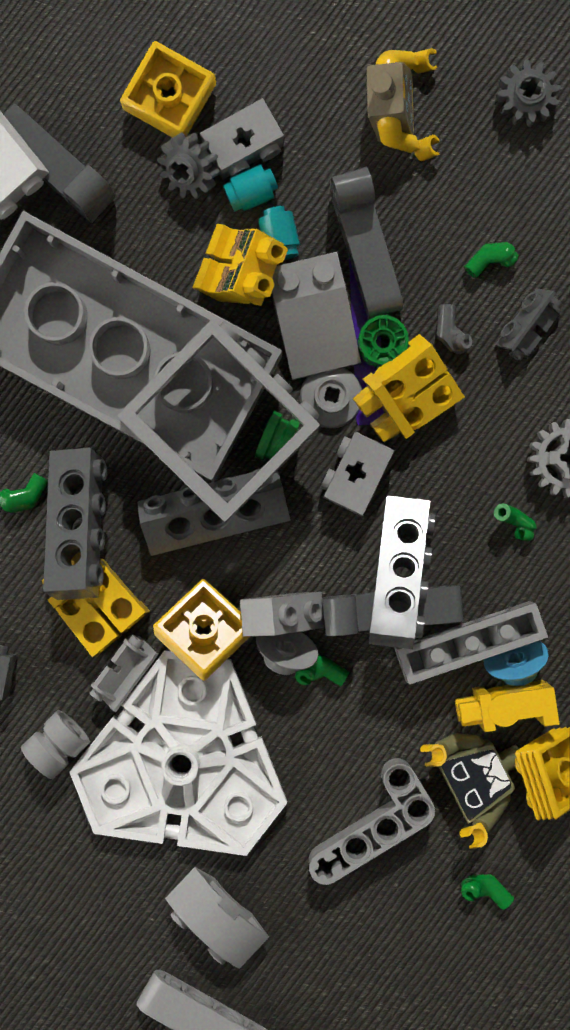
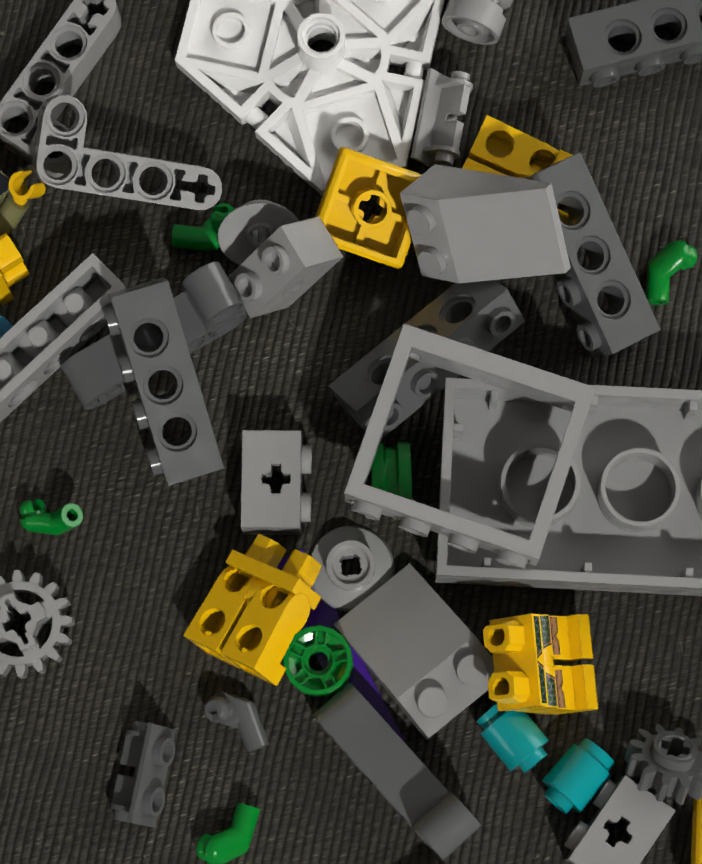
camera: 160 degrees right, 10 degrees down
(135, 574) = (483, 226): none -> light grey slope
(355, 736) = (127, 166): none -> light grey beam

